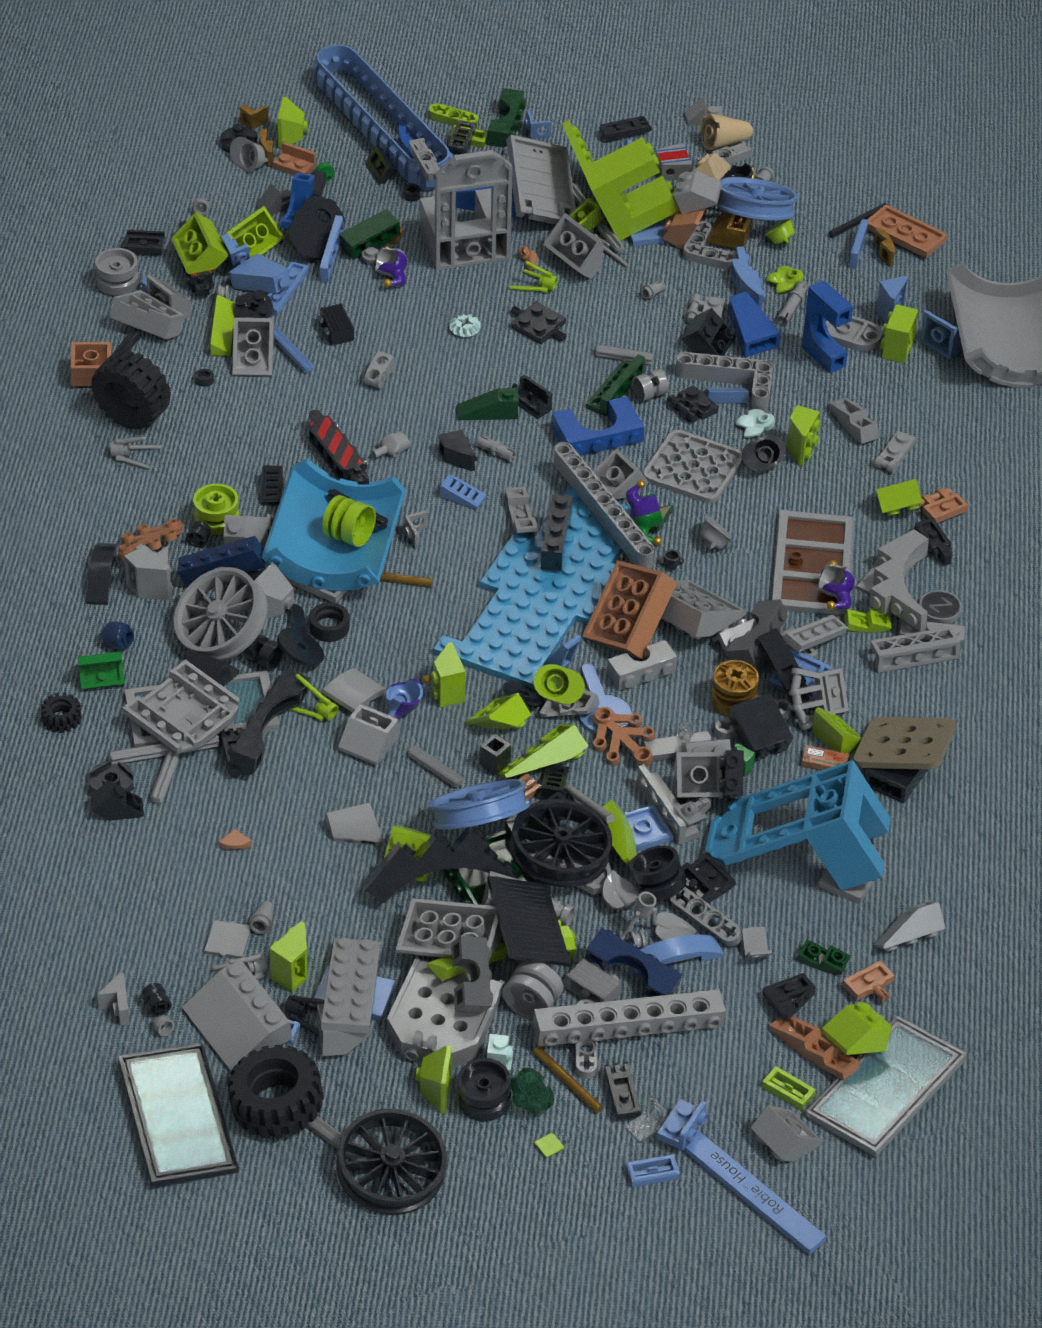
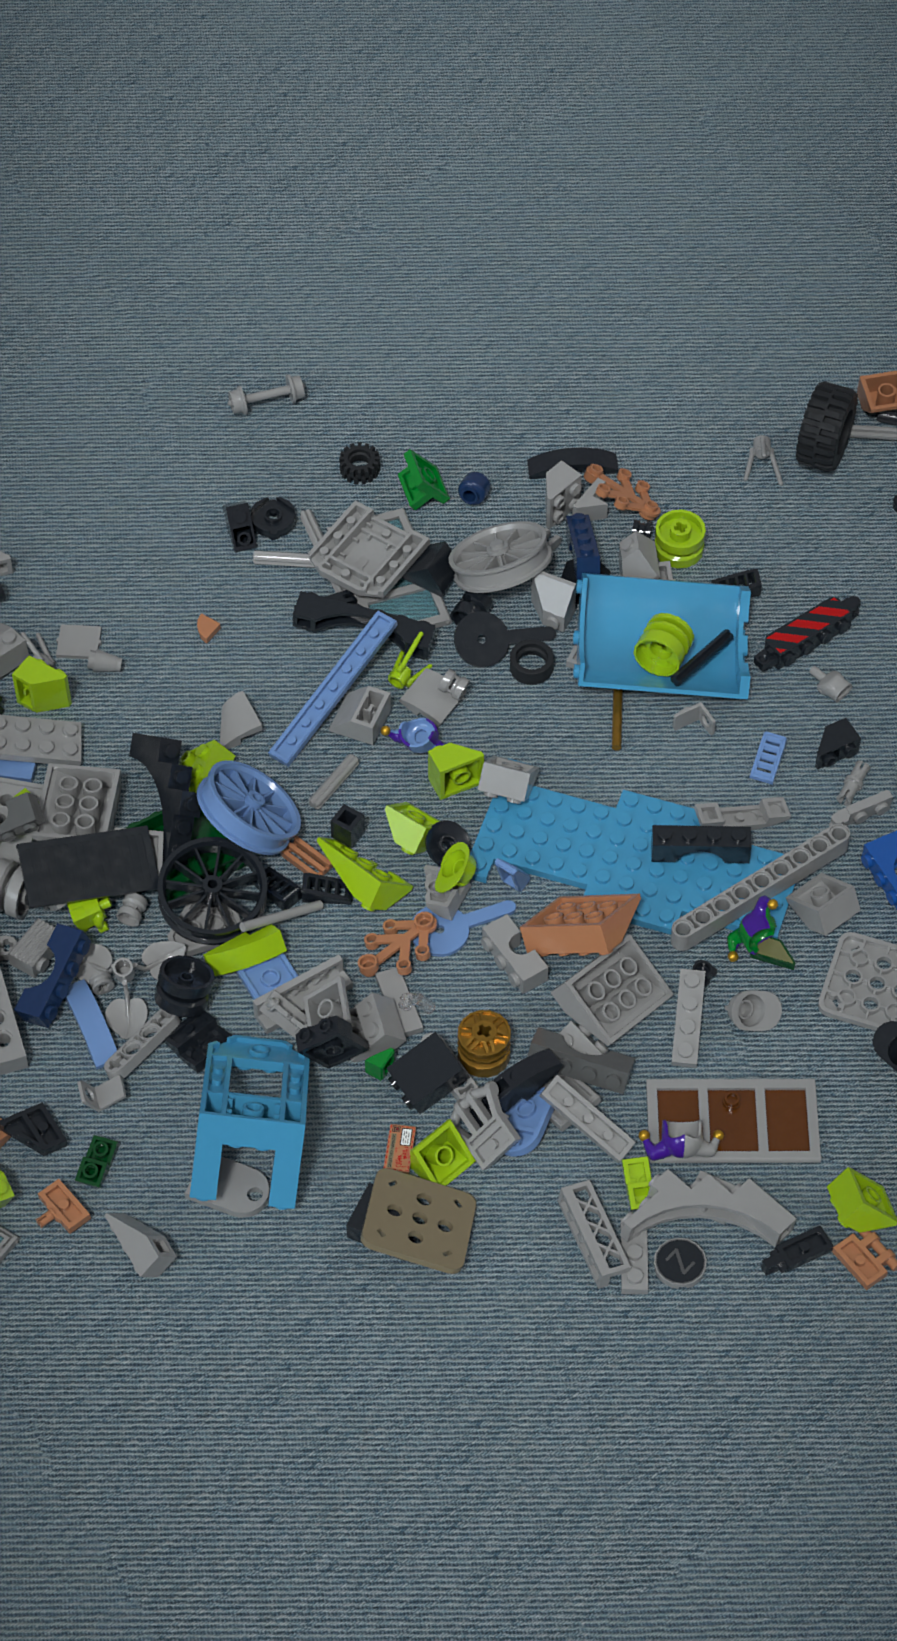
camera: 85 degrees right, 10 degrees up
(339, 748) = (332, 688): none -> medium blue tile
(353, 666) = (457, 688): none -> light grey wheel
(469, 638) = (507, 779): none -> light grey slope
(528, 447) = (861, 810): none -> light grey hinge
(717, 570) = (688, 1018): none -> light grey plate

